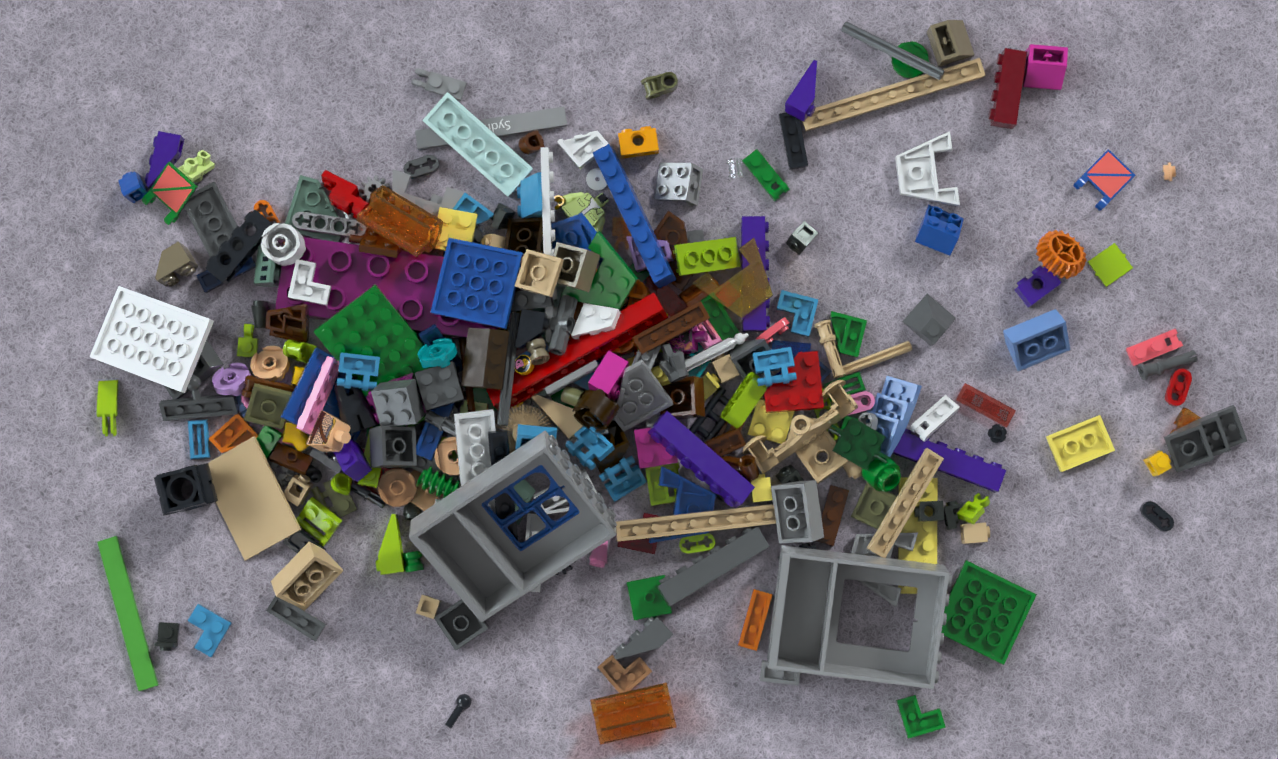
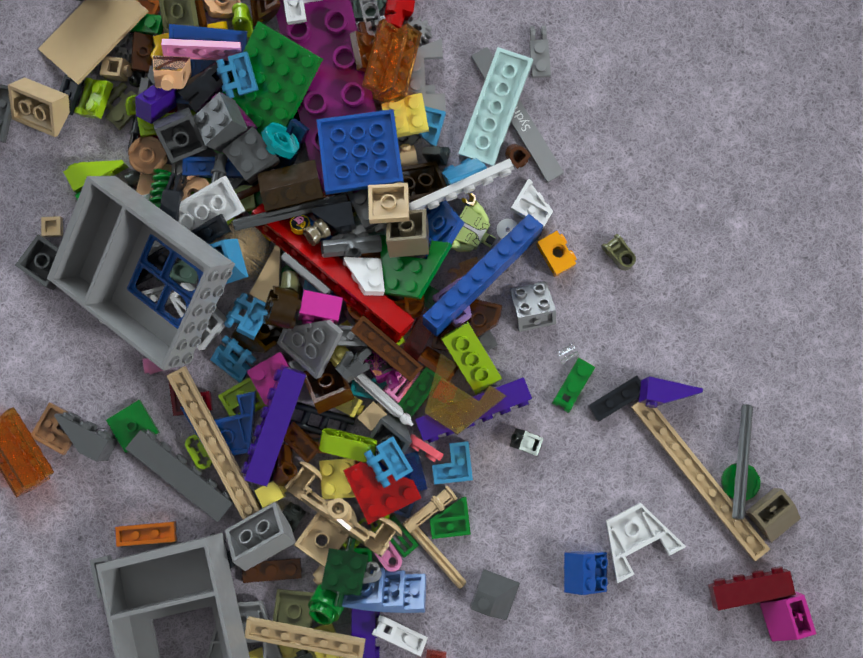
camera: 70 degrees right, 0 degrees up
(422, 170) = (459, 63): dark grey beam -> none
(453, 474) = (172, 195): none -> black arm

